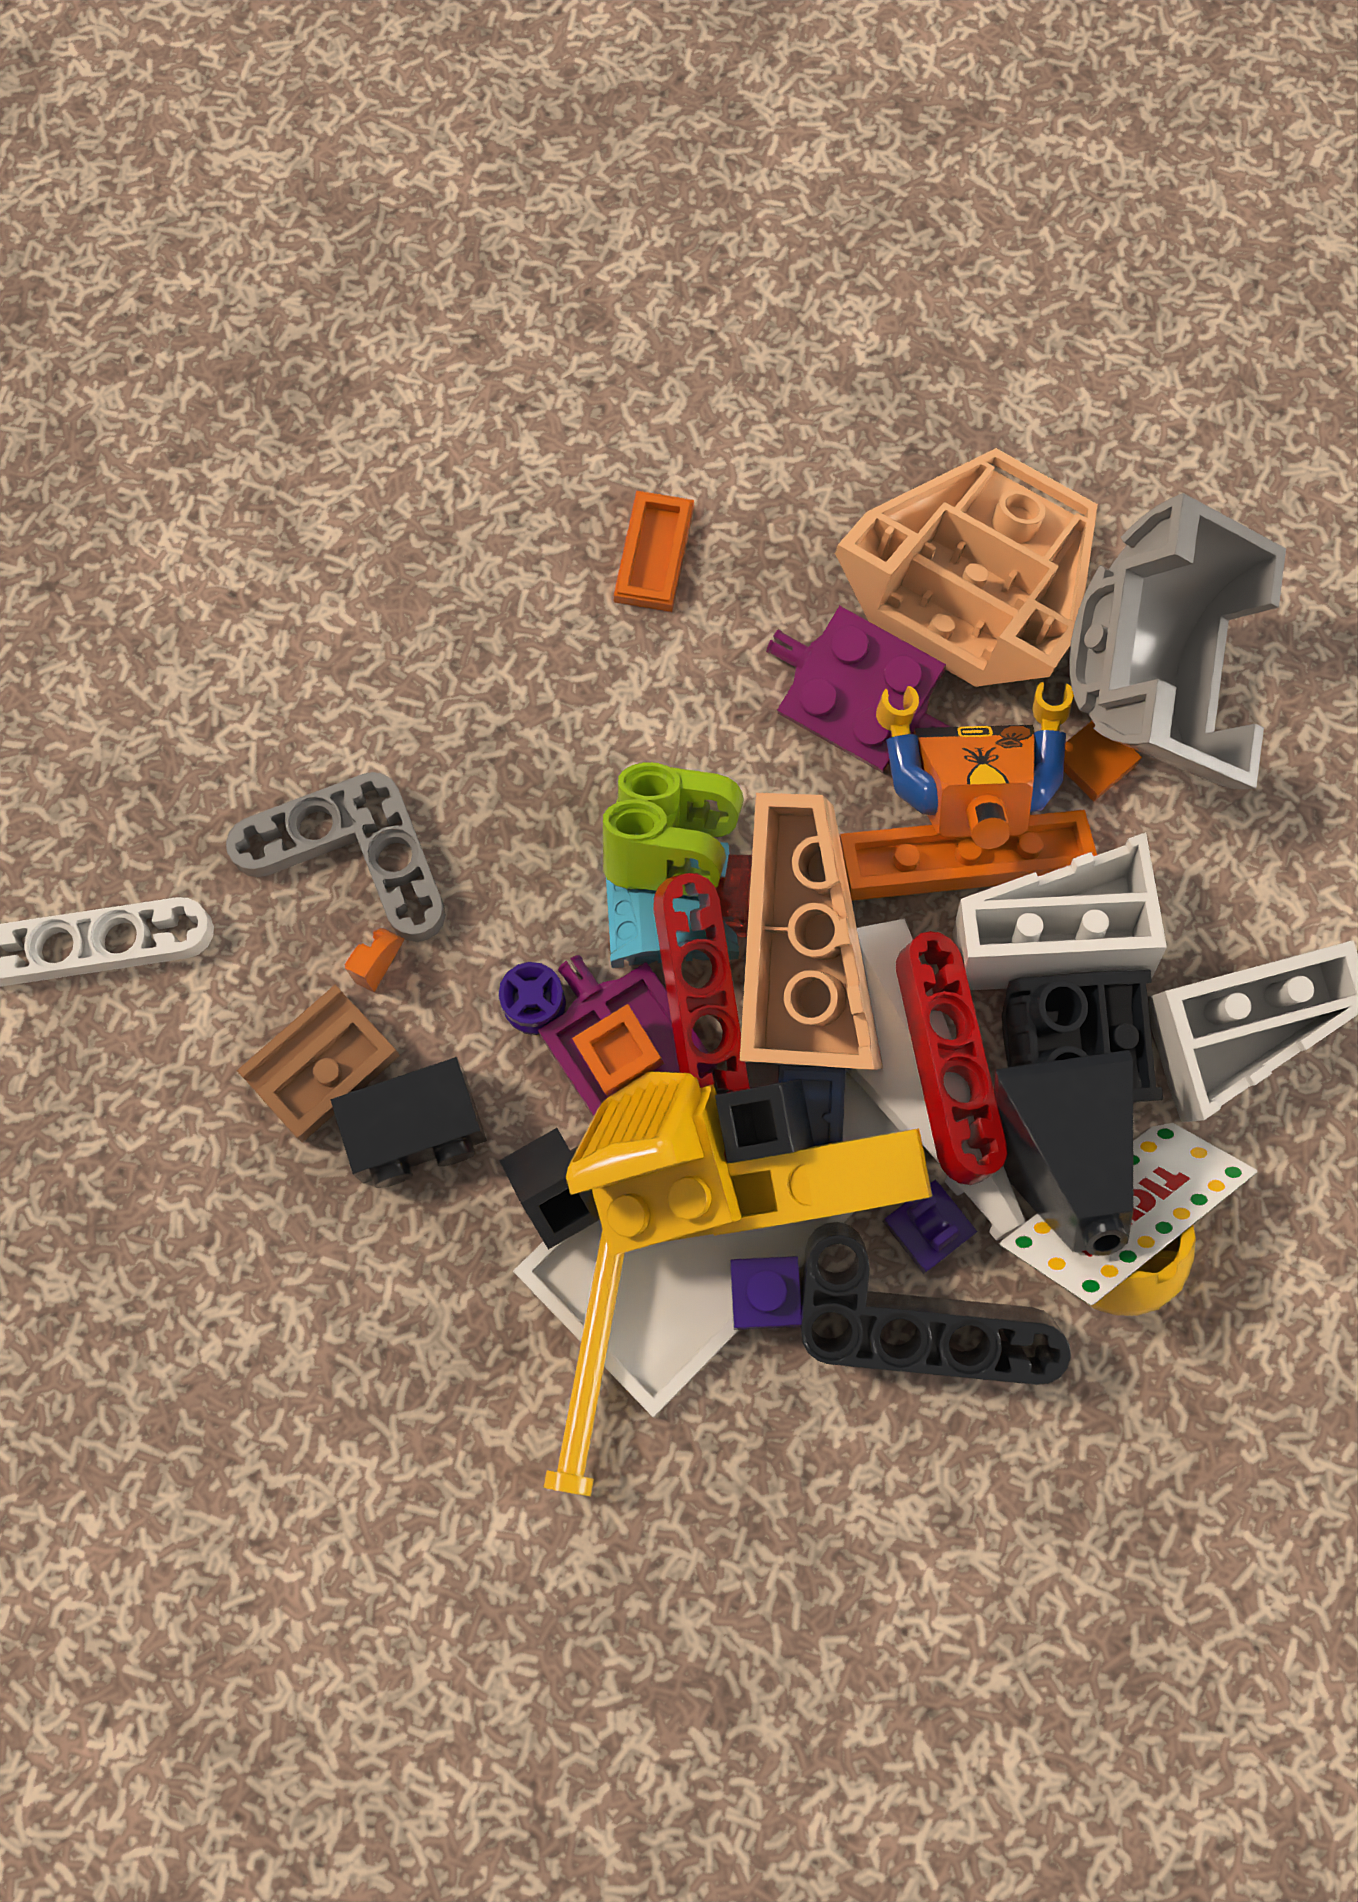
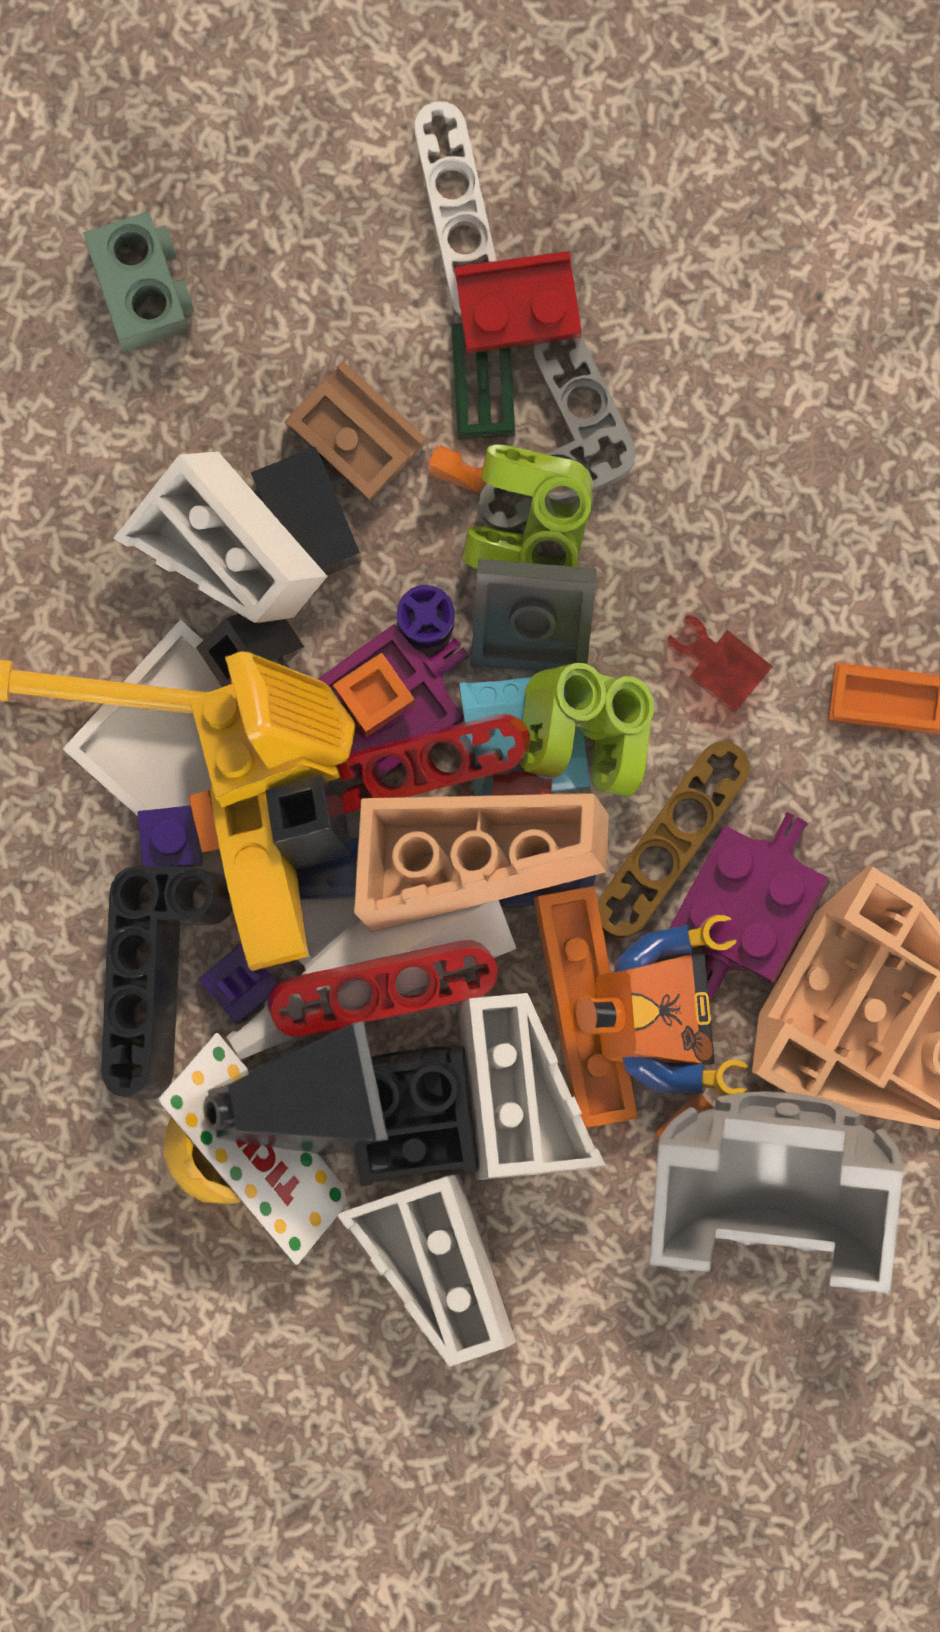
camera: 85 degrees right, 10 degrees up
(115, 1310) = (129, 284): none -> sand green brick
(196, 878) = (518, 302): none -> red plate
(277, 951) = (485, 428): none -> dark green tile
(427, 1205) = (223, 539): none -> white wedge
(441, 858) = (534, 476): none -> lime piece
(542, 878) = (532, 615): none -> dark grey plate
(609, 699) = (725, 668): none -> clear red plate
(752, 1243) = (204, 822): none -> orange tile
(796, 753) = (669, 837): none -> pearl gold beam

